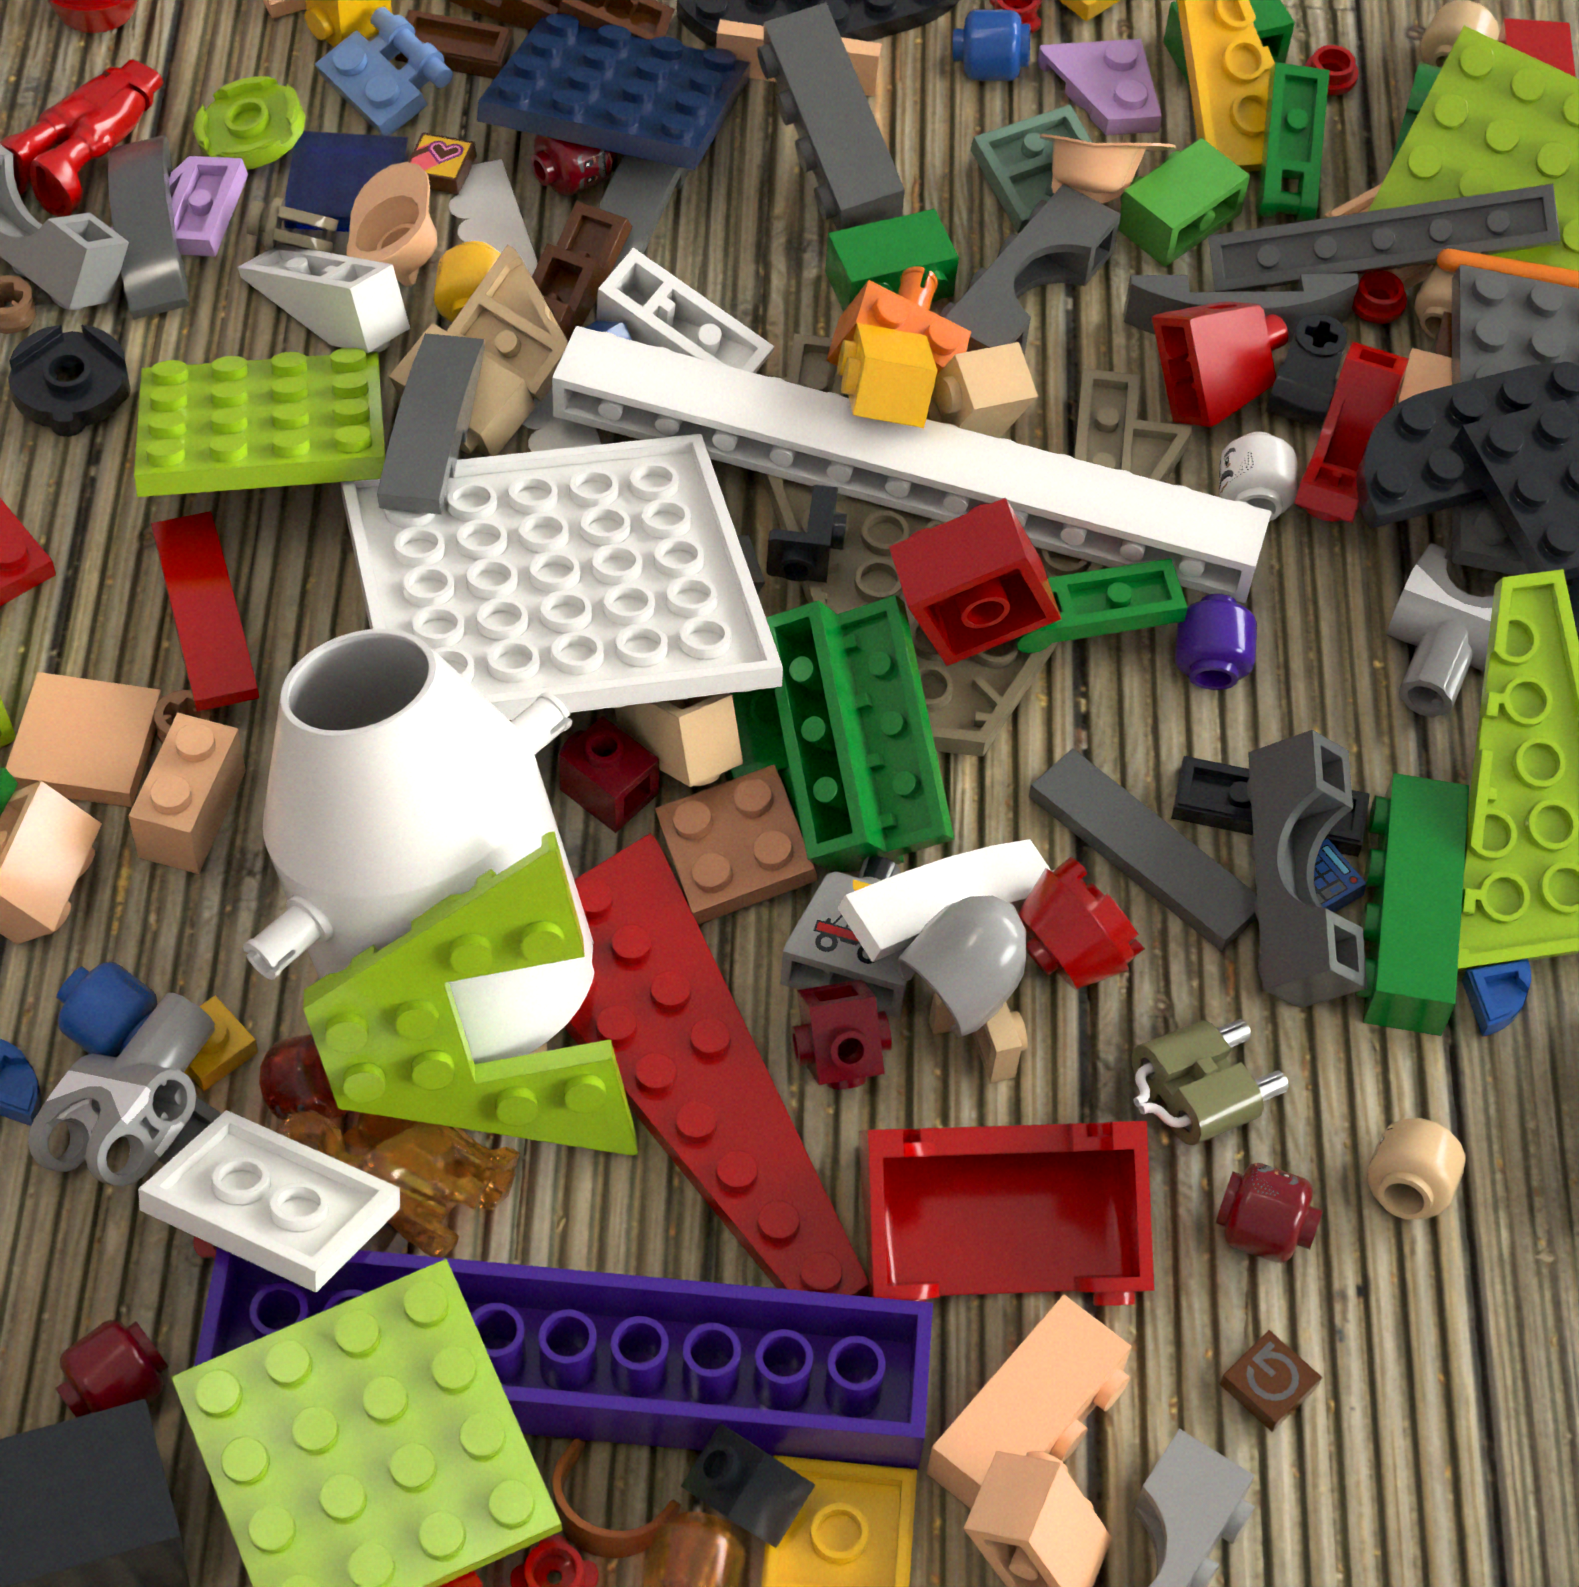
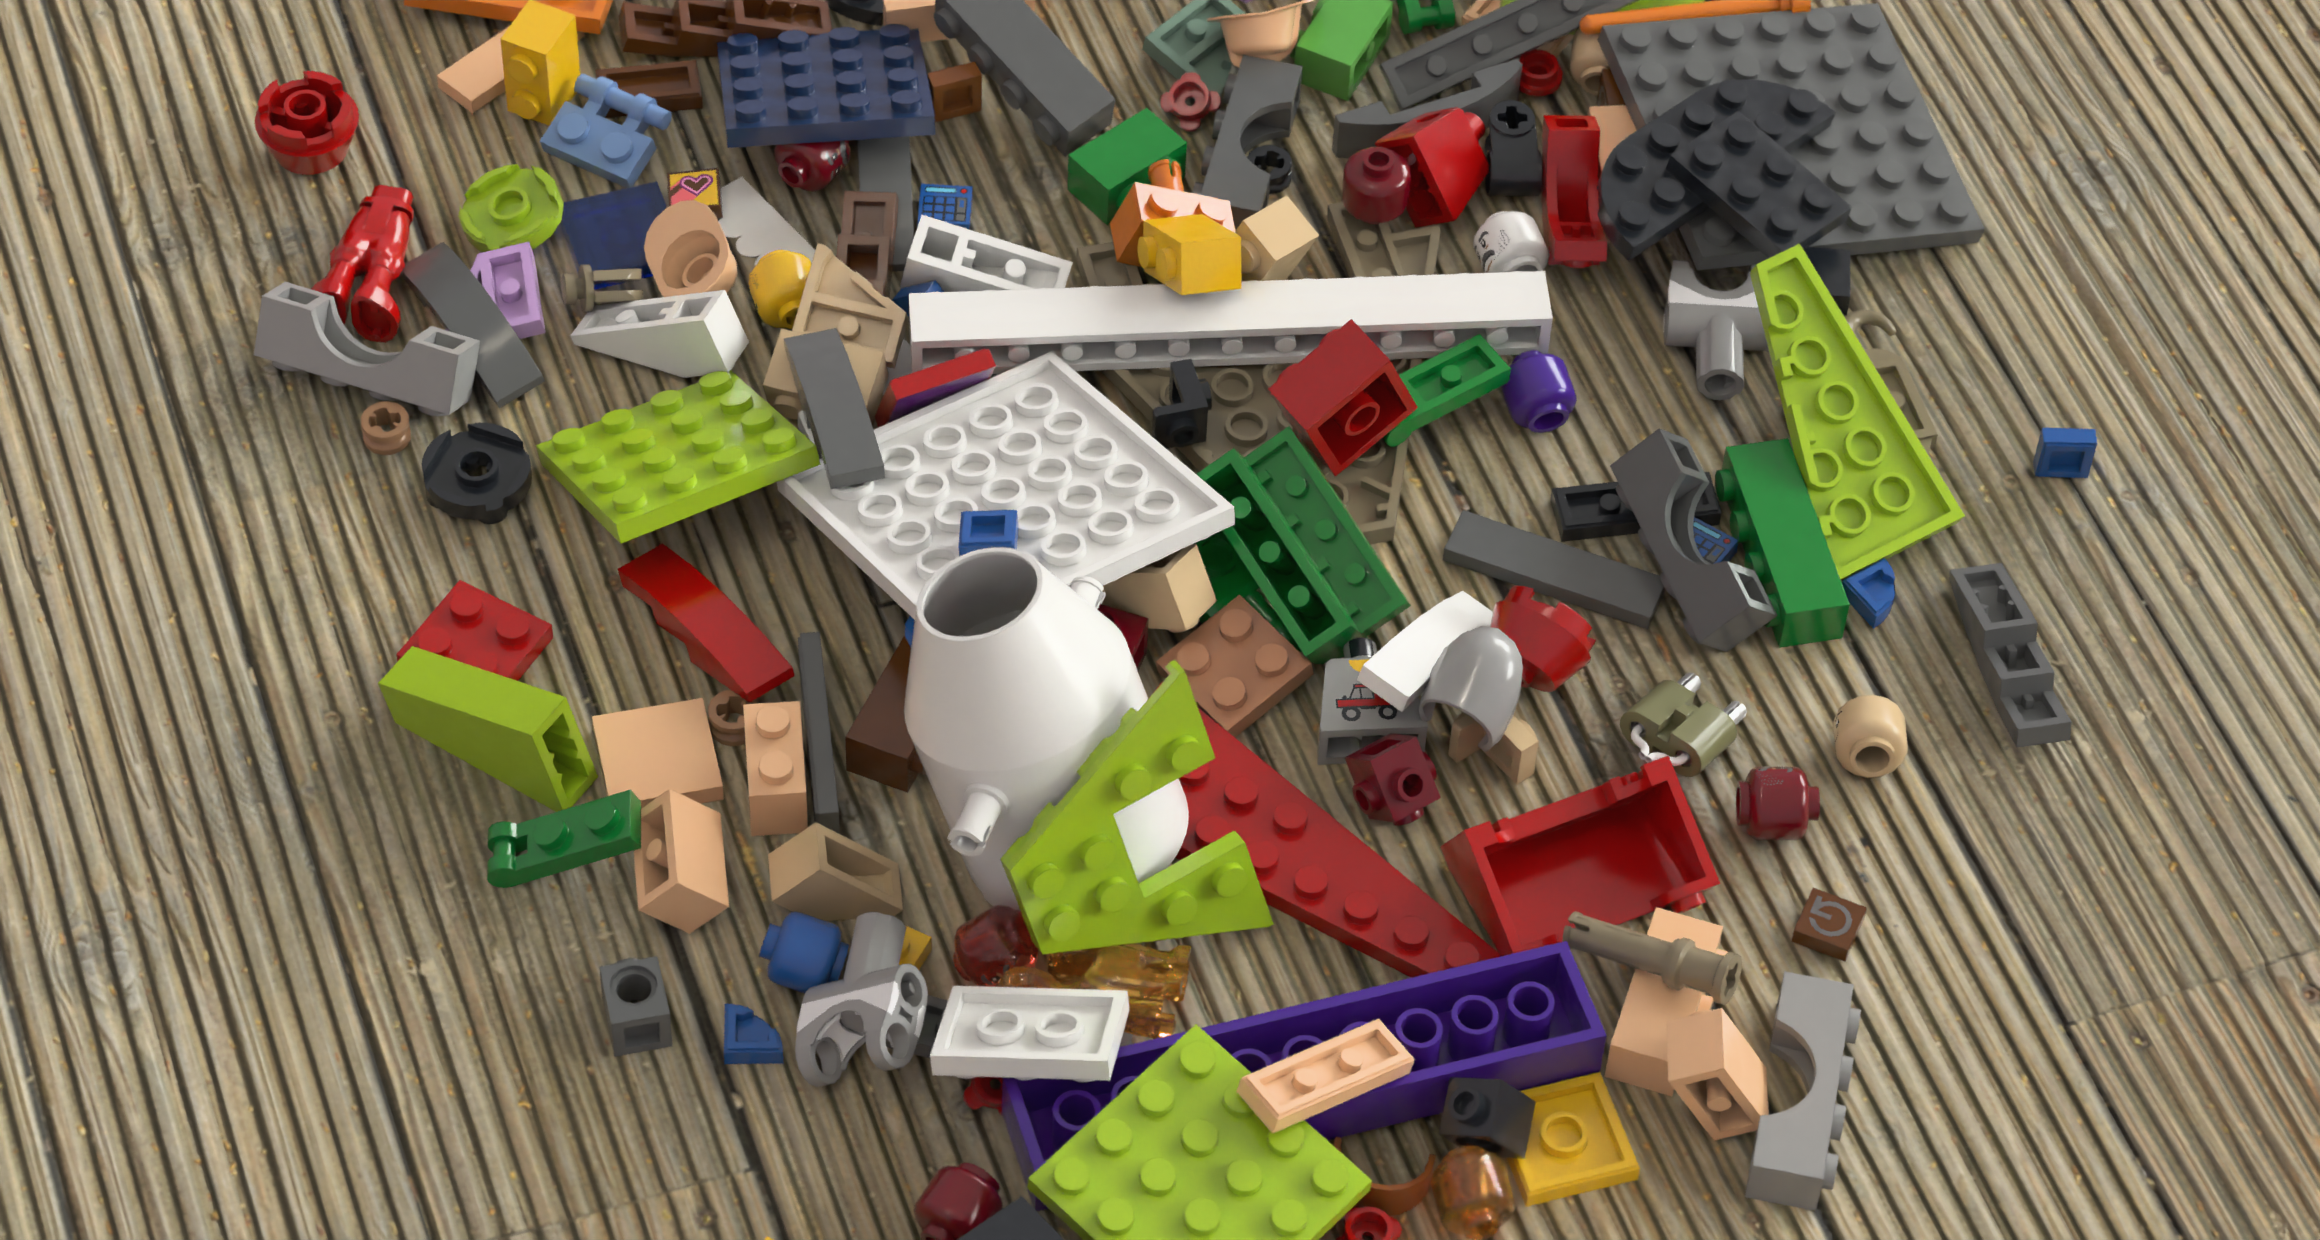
camera: 20 degrees left, 5 degrees down
(182, 936) = (833, 877): none -> tan slope
(242, 795) = (818, 731): none -> dark grey tile
(500, 613) = (988, 530): none -> blue tile
(556, 429) = (933, 384): none -> red tile
(562, 1375) = (1325, 1075): none -> light nougat tile
(686, 252) = (946, 203): none -> blue tile
(752, 135) = (956, 91): none -> dark orange plate
(991, 202) = (1190, 87): none -> plate
(1044, 298) = (1275, 157): none -> black bush
(1048, 1376) = (1676, 962): none -> dark tan pin
(1135, 361) = (1376, 185): none -> dark red head

